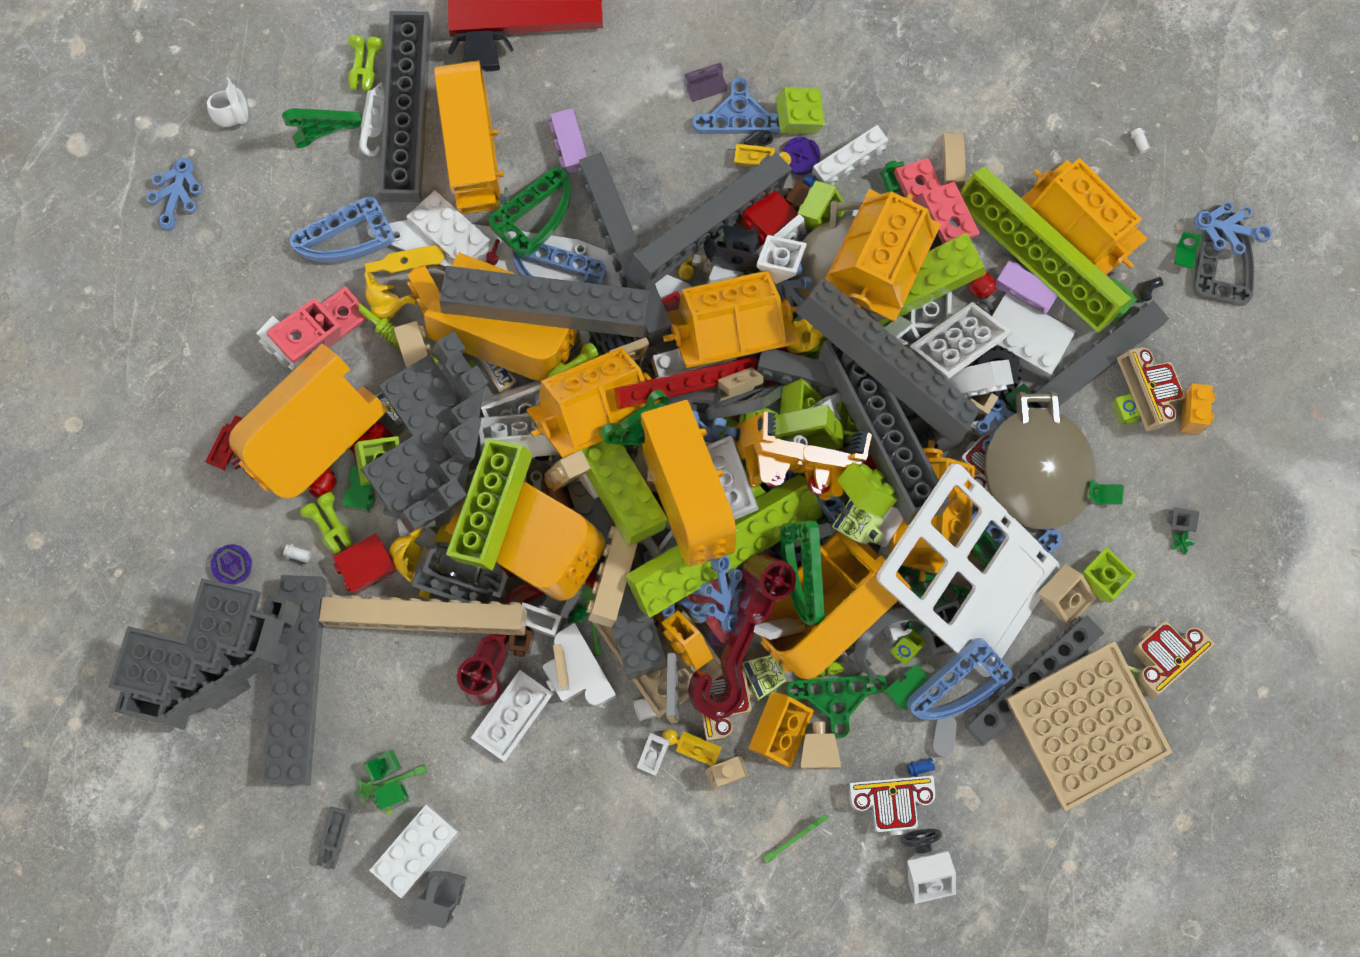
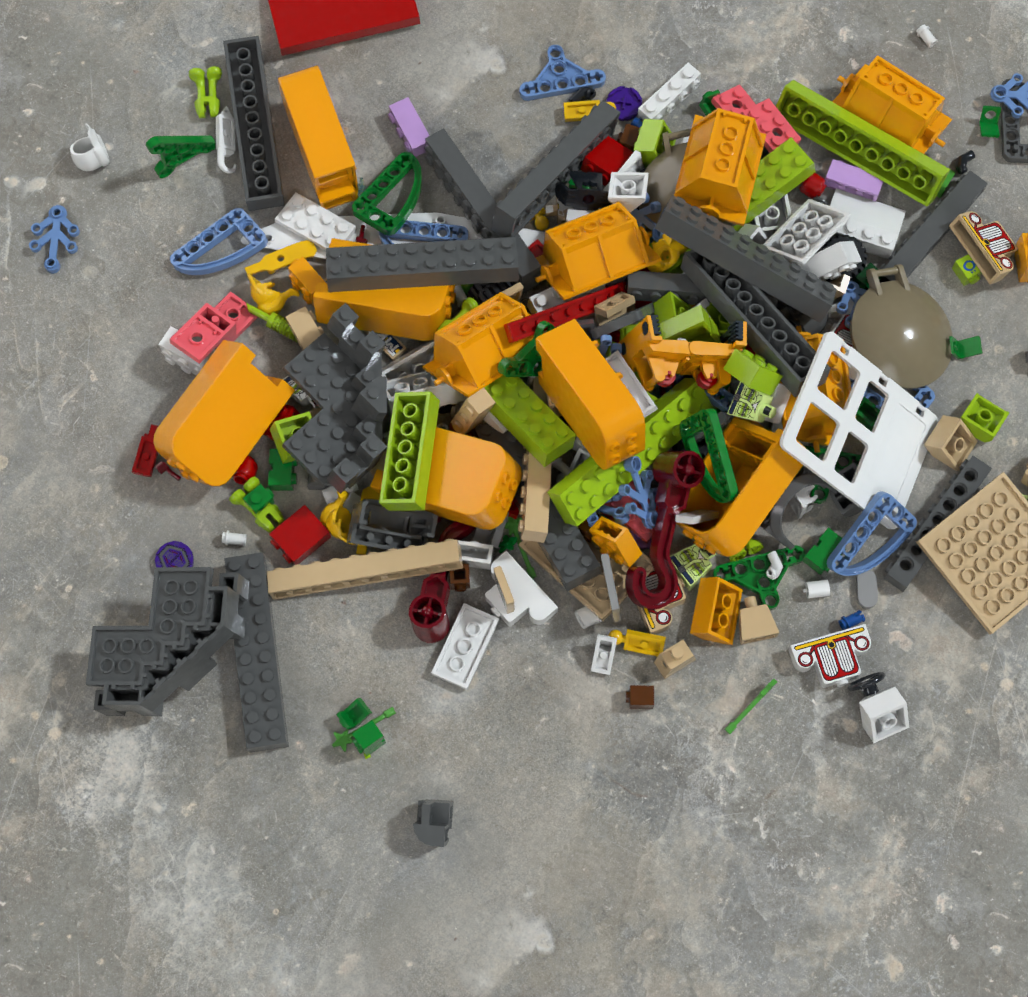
camera: 10 degrees left, 5 degrees down
(330, 516) = (259, 498): none -> green bracket
(334, 835) = (321, 786): dark grey hinge -> none
(414, 851) = (400, 785): white brick -> none
(481, 47) = (313, 55): black piece -> none
(682, 806) = (640, 697): none -> reddish brown brick
(705, 82) = (523, 54): clear purple panel -> none
(800, 110) = (615, 63): lime brick -> none
(852, 695) = (775, 567): none -> white arm
(892, 726) = (817, 589): none -> white piece
(908, 647) = (816, 514): lime brick -> none
(954, 159) = (763, 80): tan slope -> none

